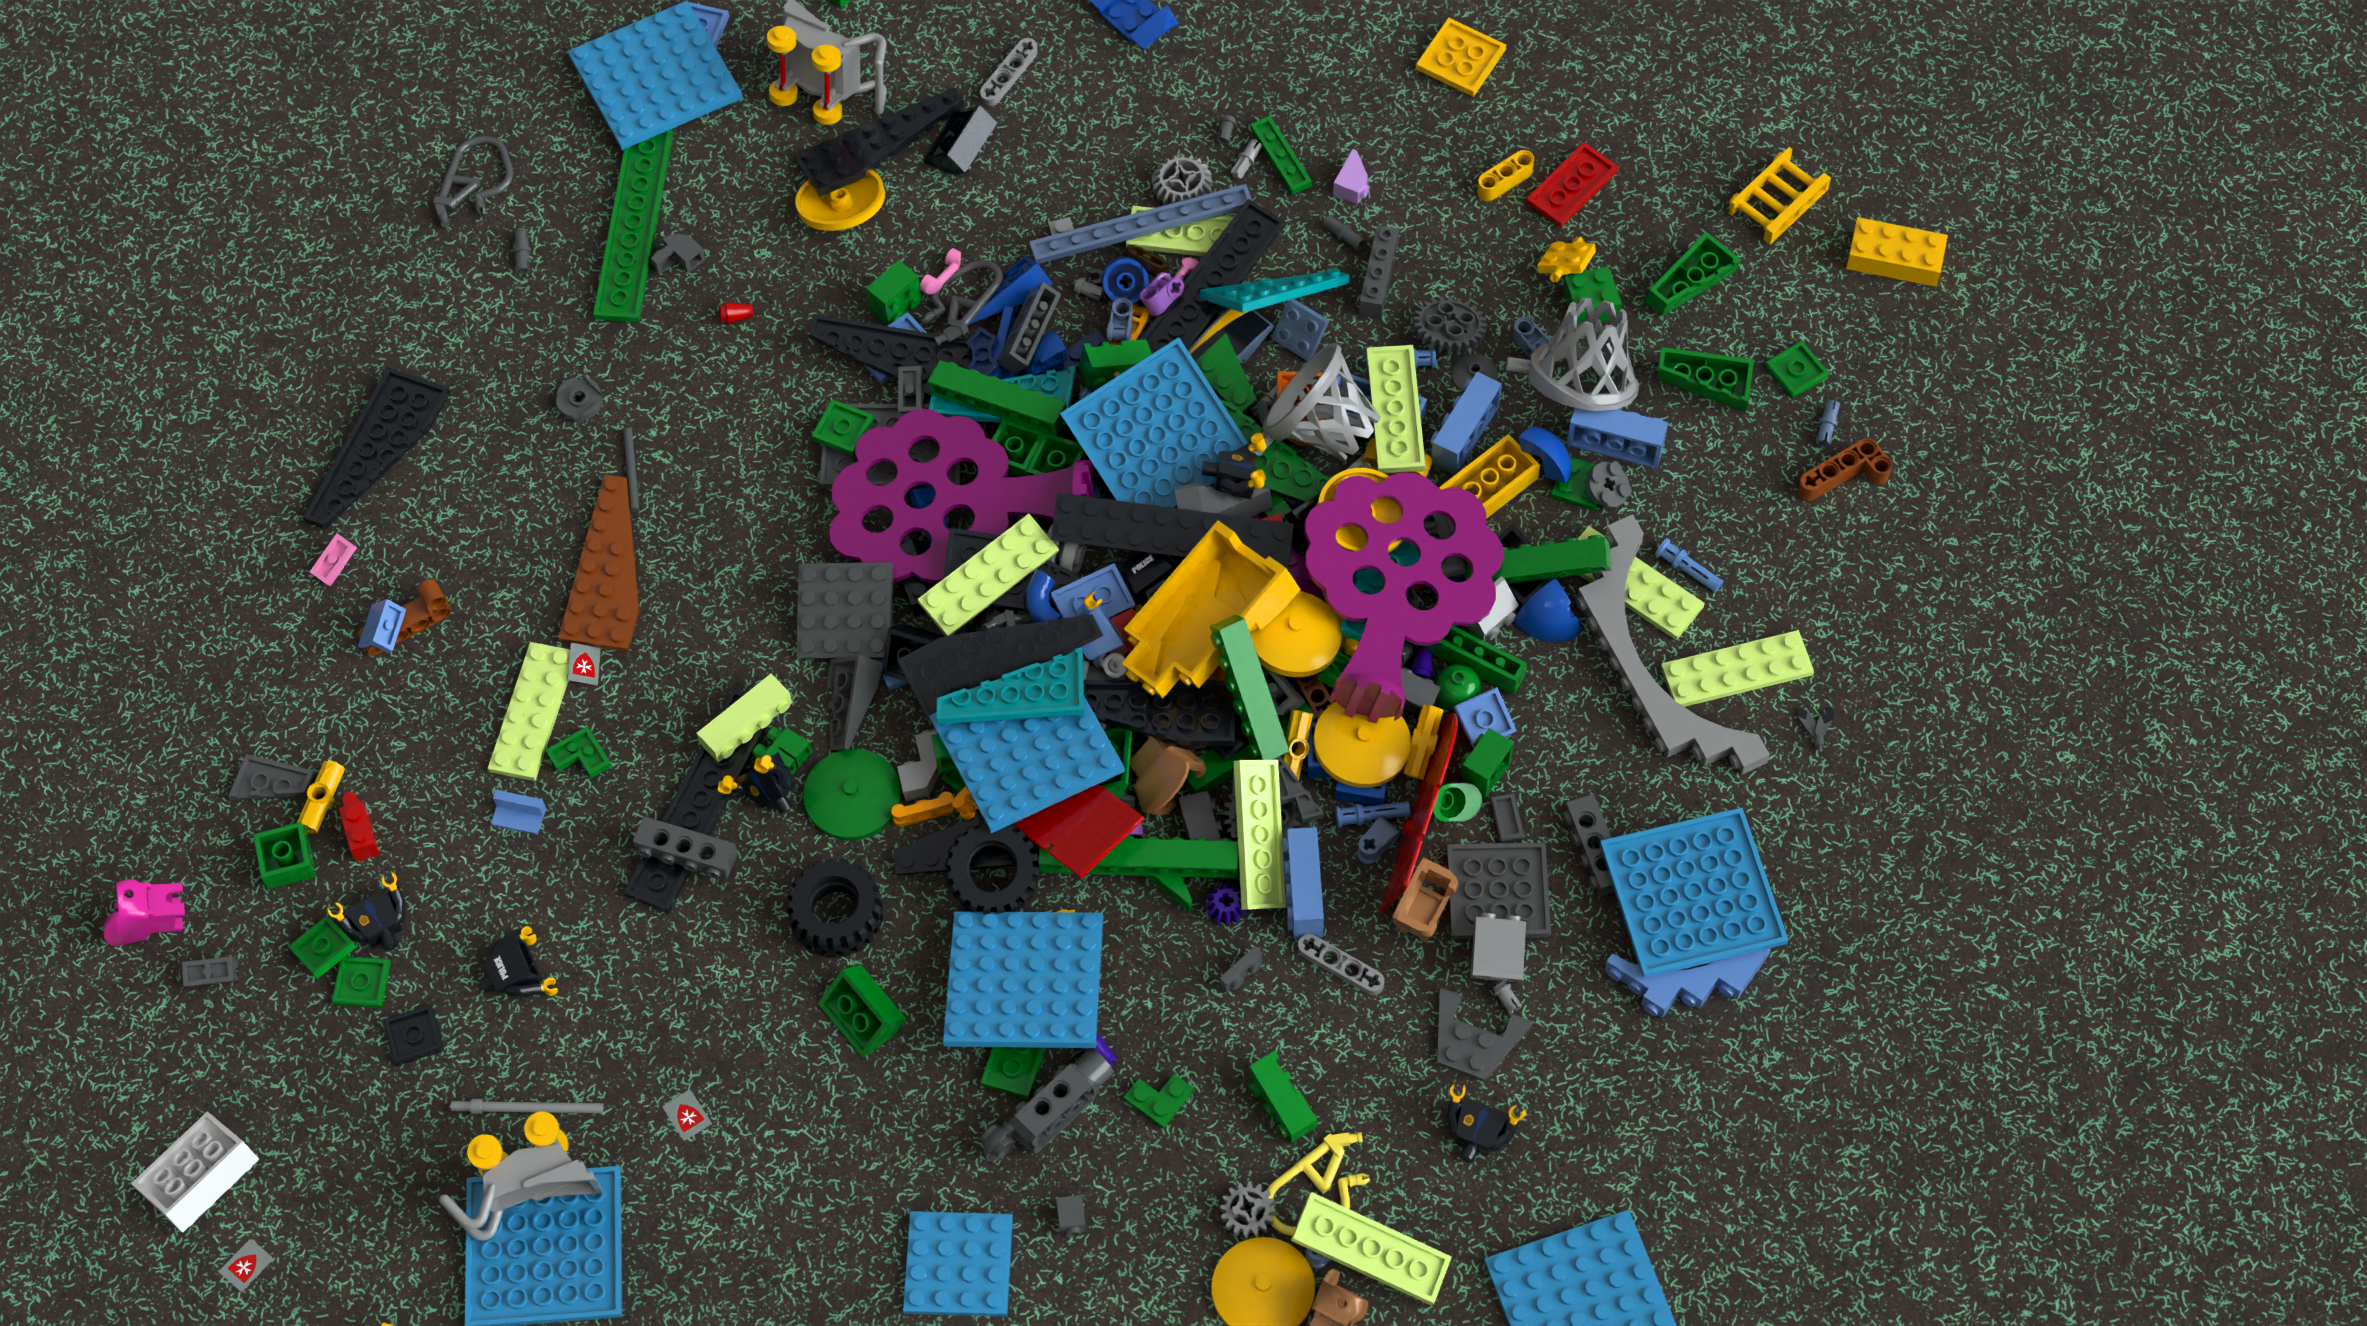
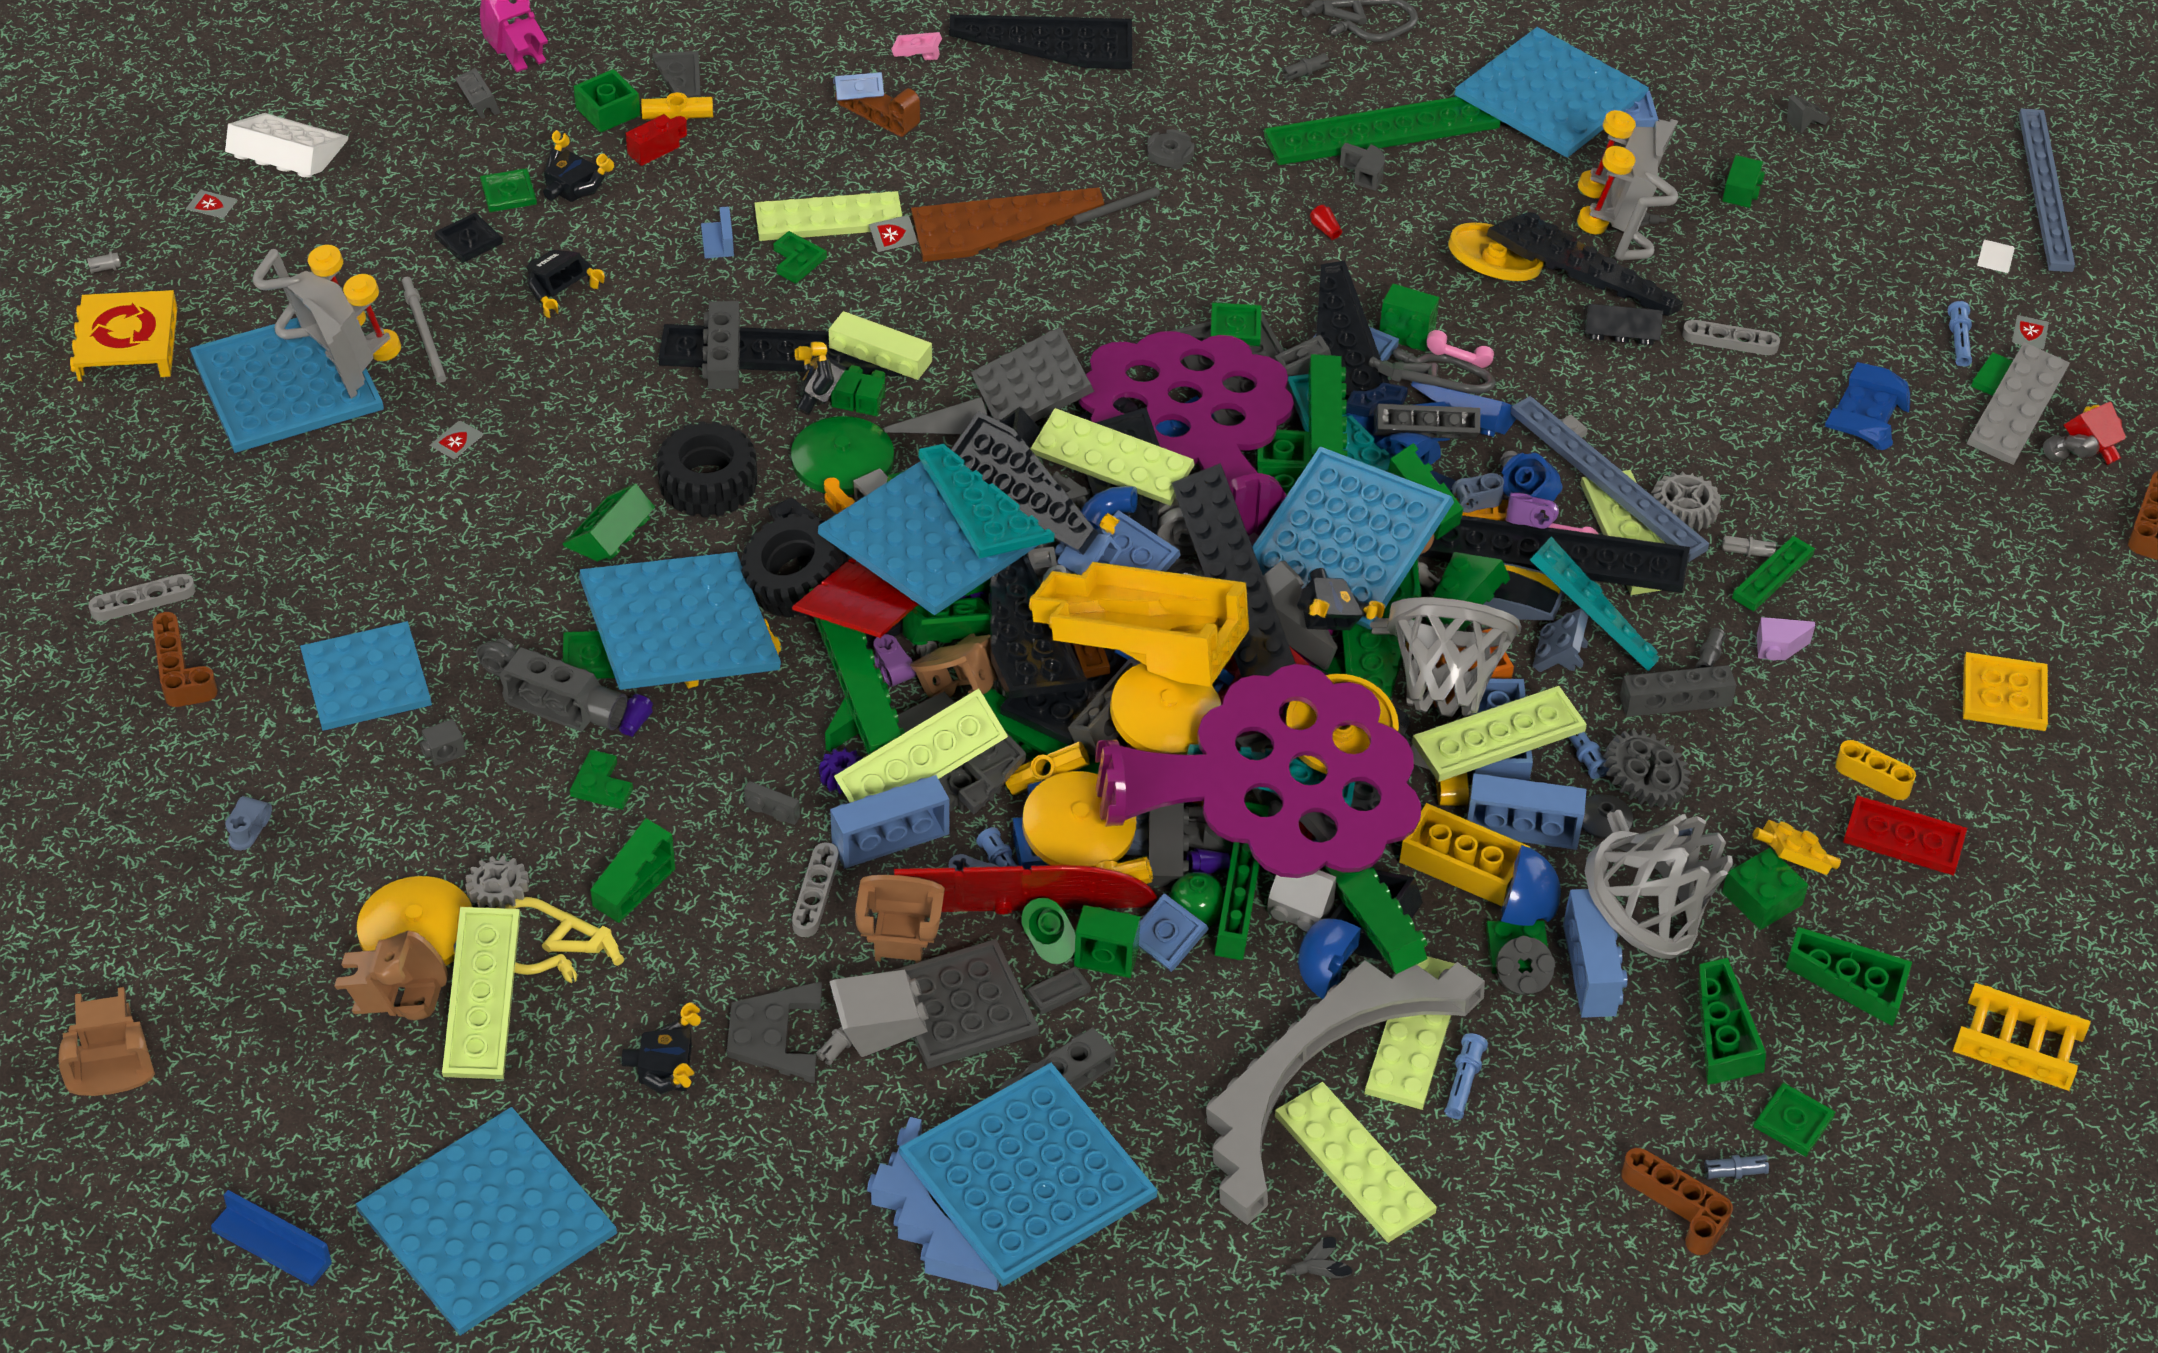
camera: 65 degrees right, 15 degrees down
(322, 946) = (525, 151): green plate -> none
(1150, 262) = (1572, 499): dark brown plate -> none
(1227, 124) = (1775, 520): dark grey pin -> none
(1248, 688) = (1069, 677): brick -> none
(1897, 252) = (2020, 1176): yellow brick -> none

